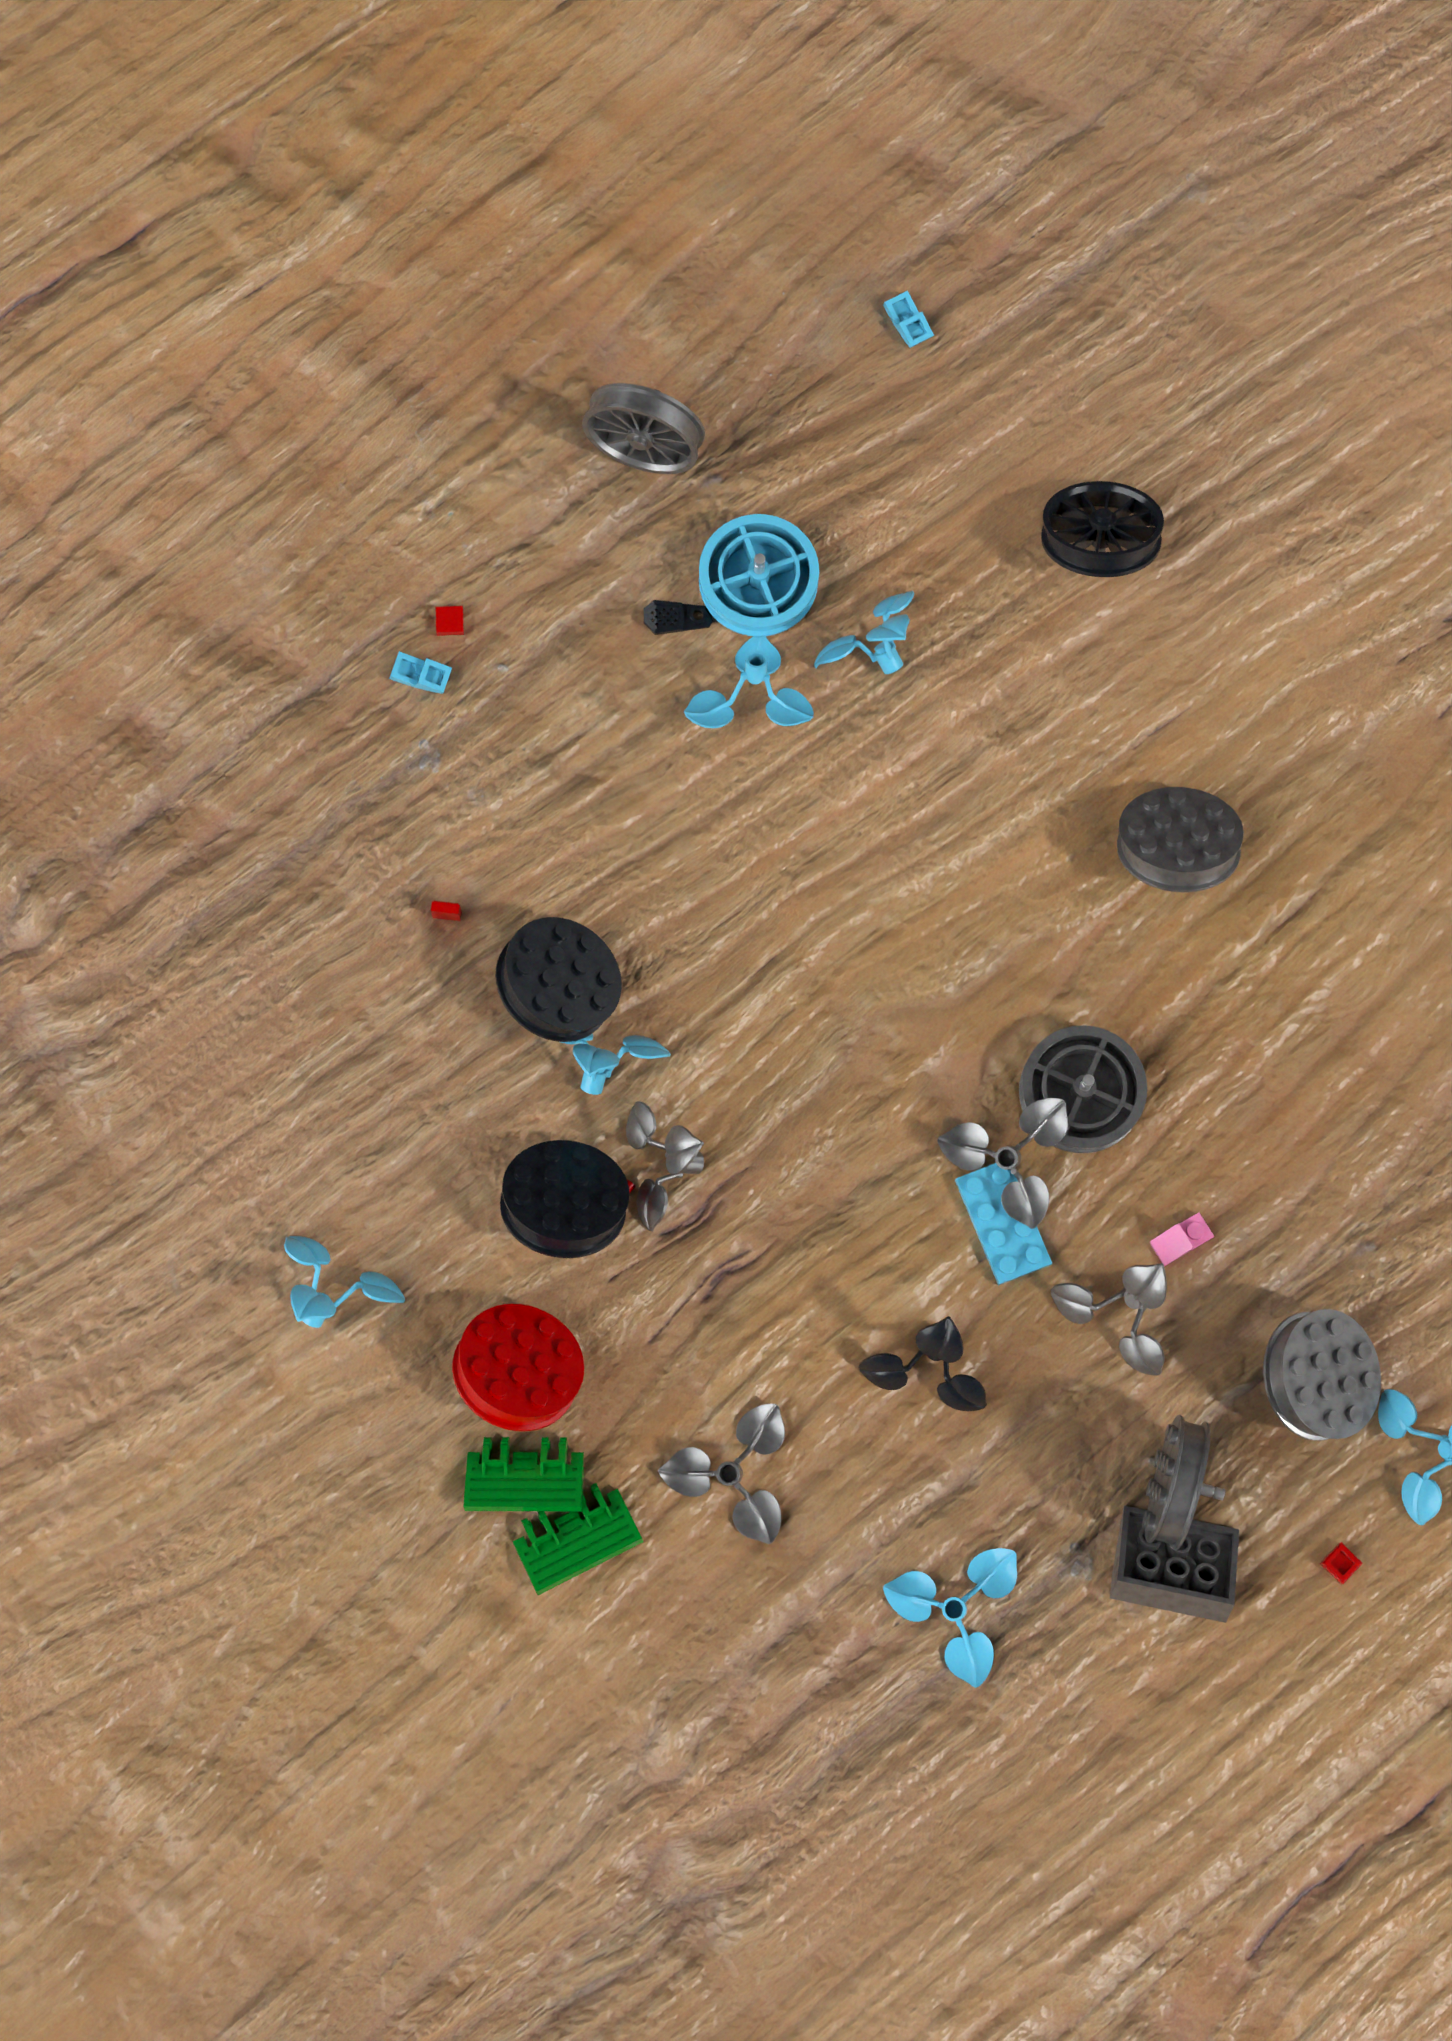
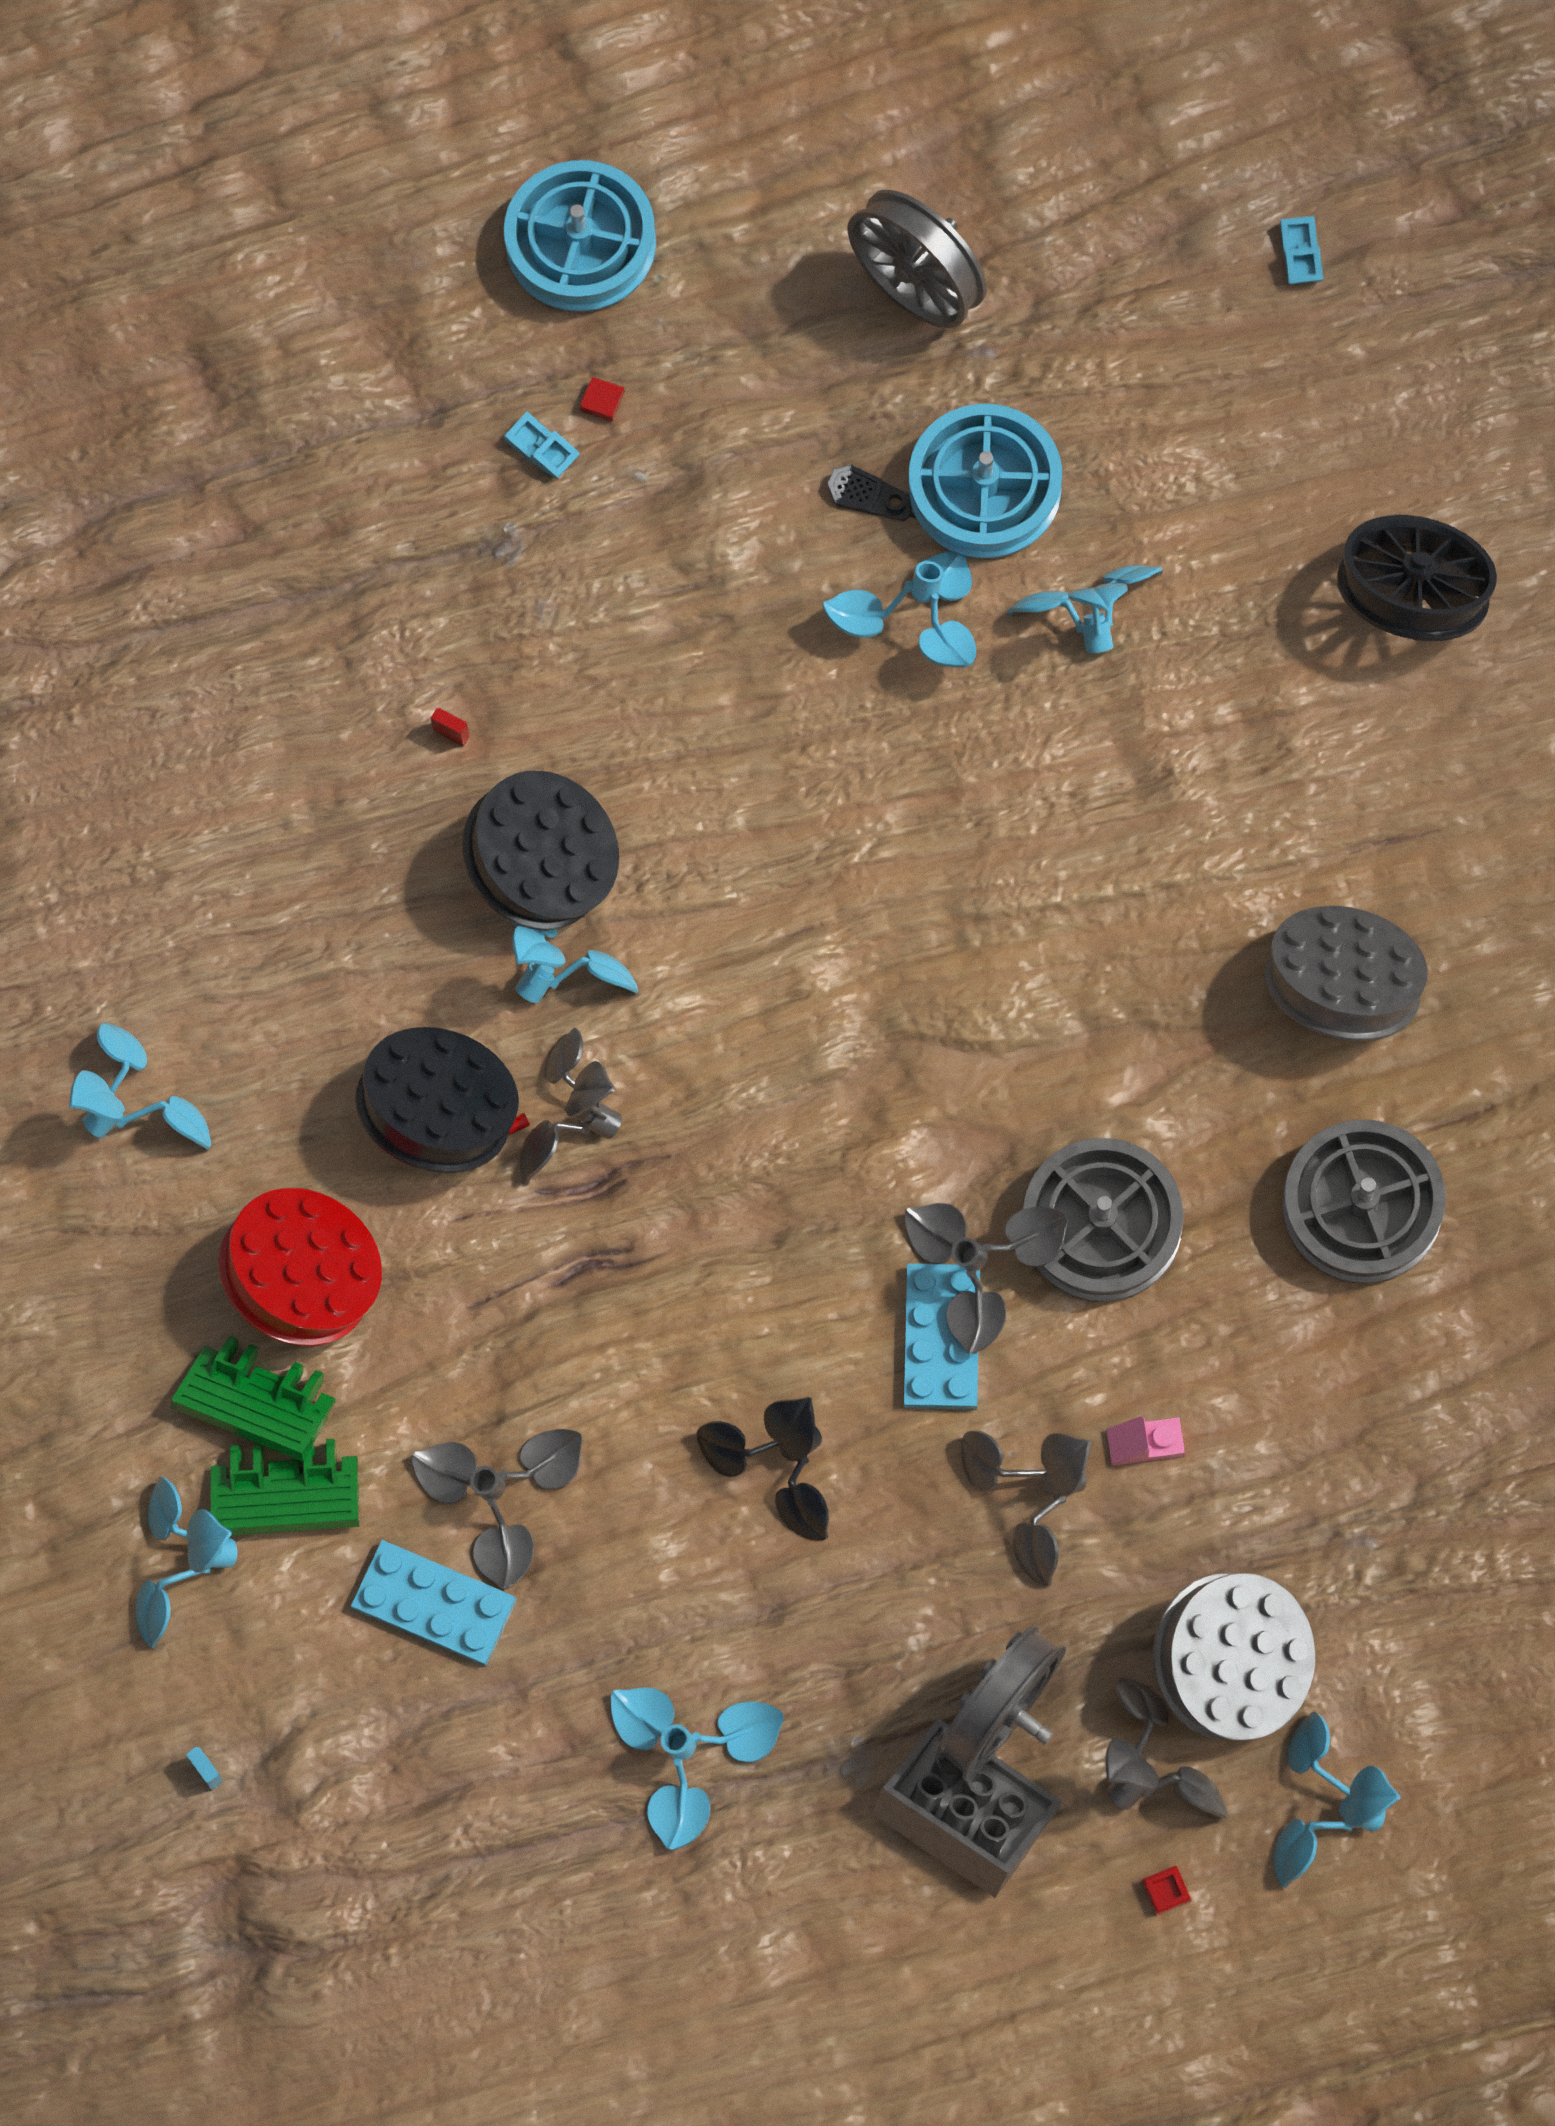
camera: 30 degrees right, 5 degrees down
(381, 504) = (580, 235): none -> medium azure wheel
(545, 1611) = (207, 1548): none -> medium azure plant
(609, 1773) = (204, 1767): none -> medium azure tile
(722, 1575) = (434, 1603): none -> medium azure plate
(1261, 1000) = (1364, 1201): none -> flat silver wheel
(1288, 1491) = (1134, 1775): none -> flat silver plant

